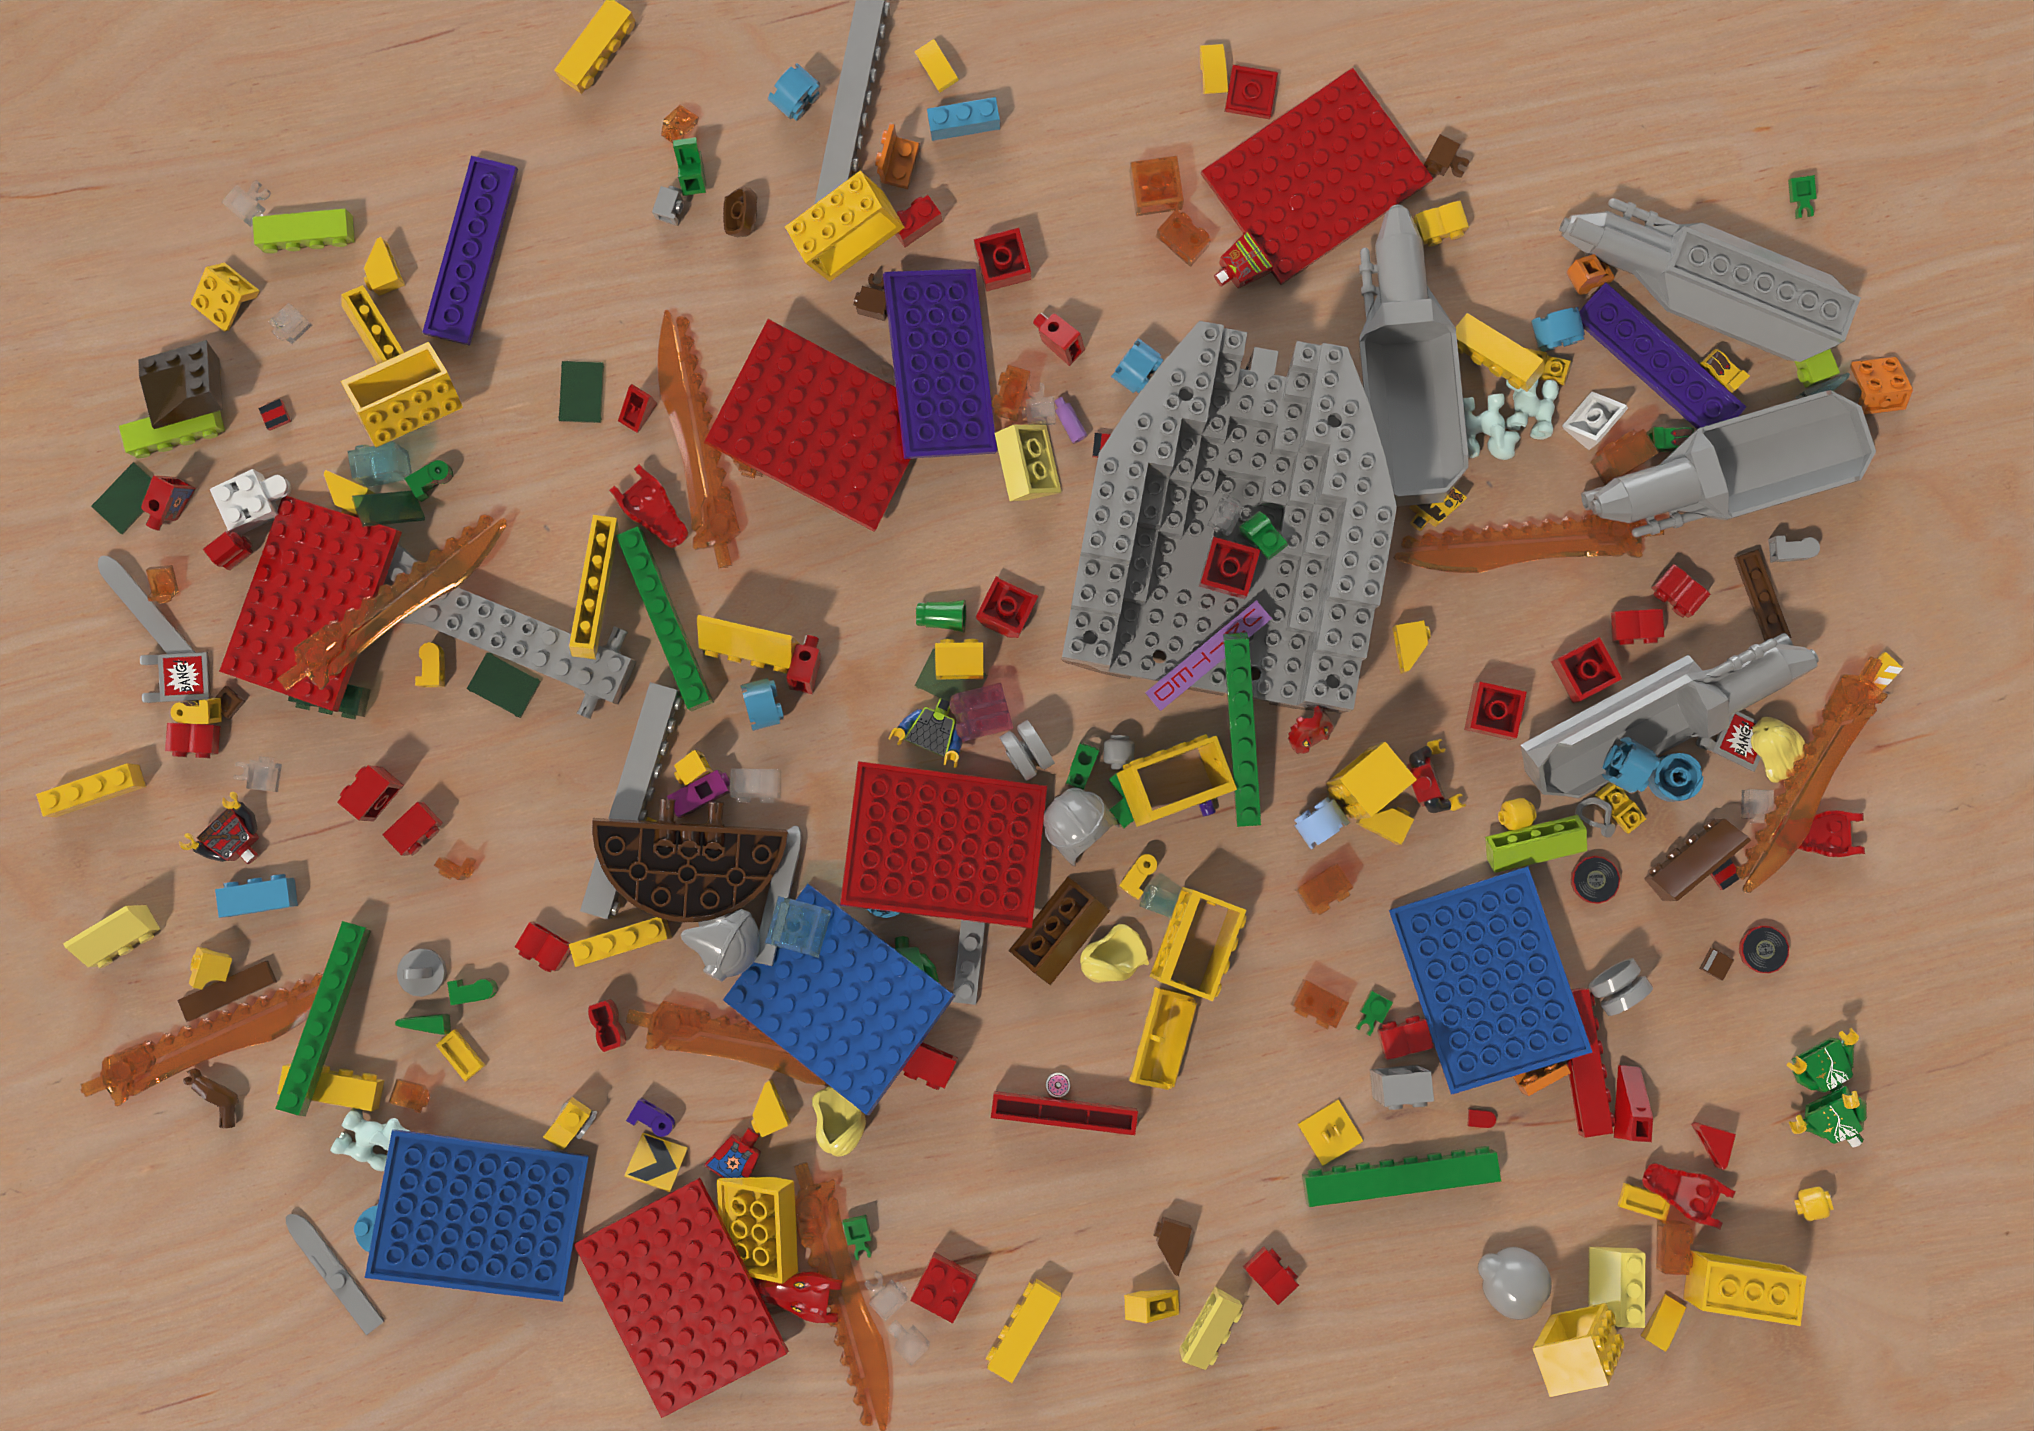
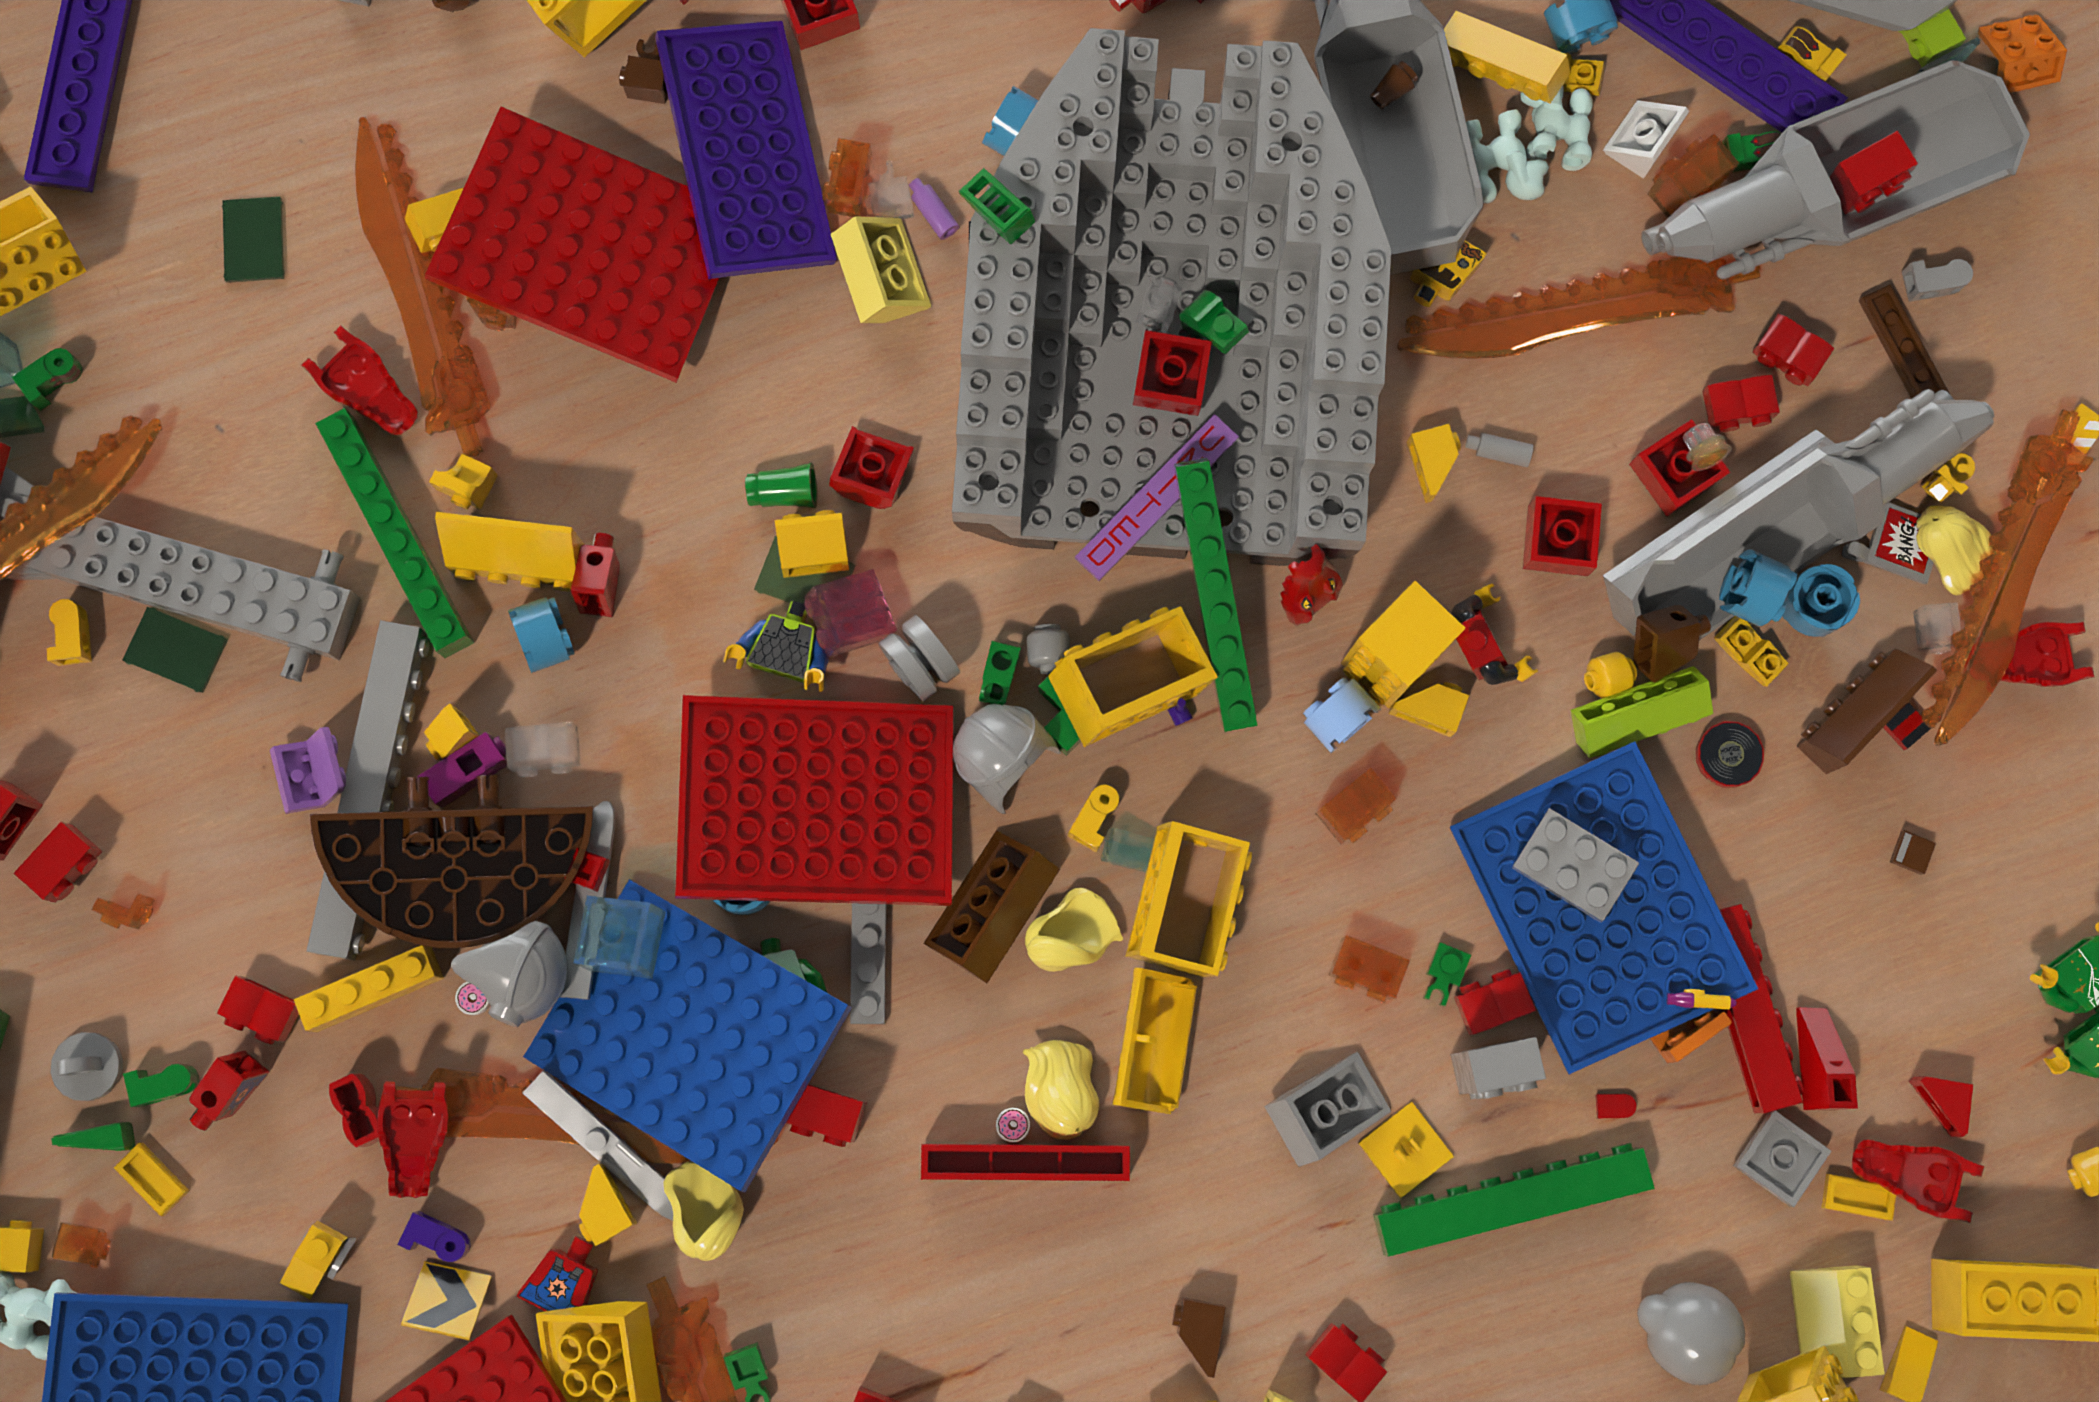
camera: 15 degrees left, 5 degrees down
(516, 999) = (225, 1088): none -> red torso
(591, 784) = (308, 772): none -> medium lavender bracket
(594, 587) = (289, 497): yellow brick -> none
(636, 408) = (331, 251): red slope -> none
(642, 1046) = (411, 1132): none -> red animal
(689, 956) = (471, 999): none -> tile
(712, 393) = (430, 217): none -> yellow slope
(718, 587) = (466, 482): none -> yellow brick
(771, 1065) = (600, 1141): none -> piece
(782, 875) = (590, 871): none -> red tile
(1060, 337) = (908, 98): red torso -> none
(1094, 1063) = (1061, 1088): none -> light yellow piece
(1131, 463) = (1013, 221): none -> green slope
(1279, 1099) = (1328, 1110): none -> light grey slope
(1415, 366) = (1394, 84): none -> reddish brown cone
(1459, 641) = (1501, 449): none -> light grey cylinder
(1474, 951) = (1575, 865): none -> light grey brick
(1546, 1053) = (1698, 999): none -> piece
(1561, 795) = (1667, 640): none -> reddish brown torso
(1594, 1169) = (1782, 1158): none -> light grey plate
(1606, 660) = (1705, 447): none -> clear piece
(1607, 828) = (1737, 682): light grey piece -> none
(1620, 987) = (1785, 896): light grey wheel -> none
(1673, 1247) = (1909, 1256): clear orange brick -> none
(1749, 472) = (1873, 172): none -> red brick
(1764, 949) = (1975, 825): black tile -> none
(1780, 699) = (1949, 477): none -> yellow hips

